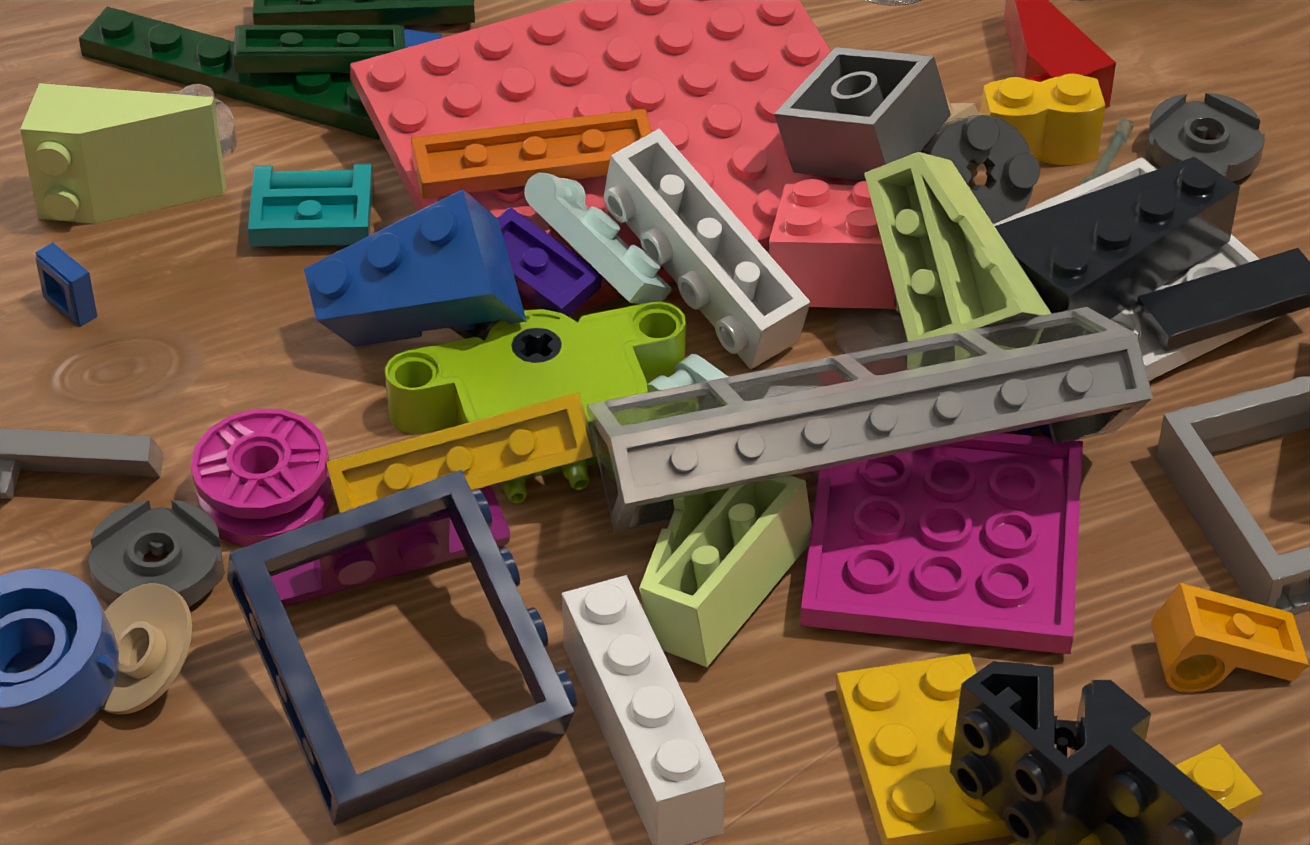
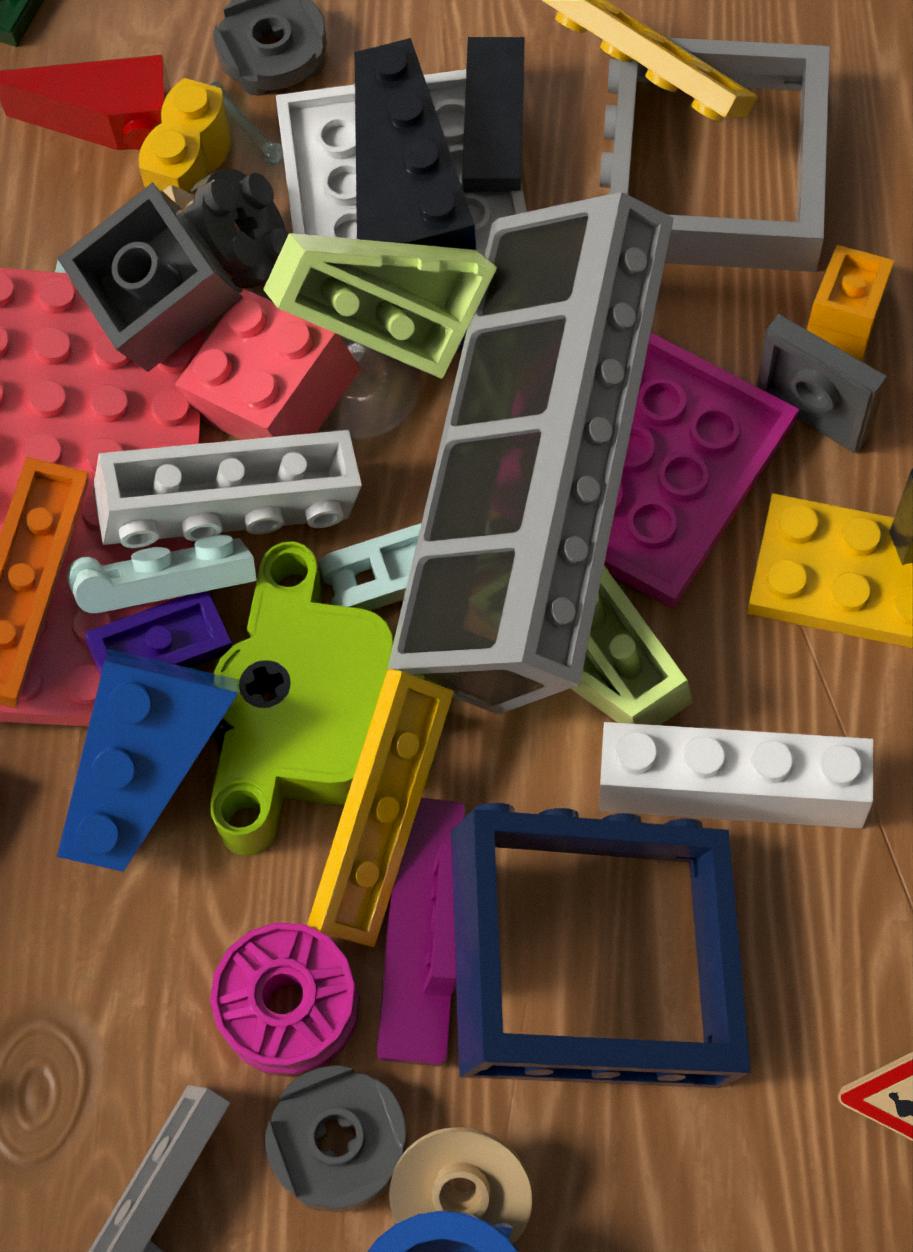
camera: 60 degrees left, 20 degrees up
(1098, 613) = (826, 384): none -> dark grey tile

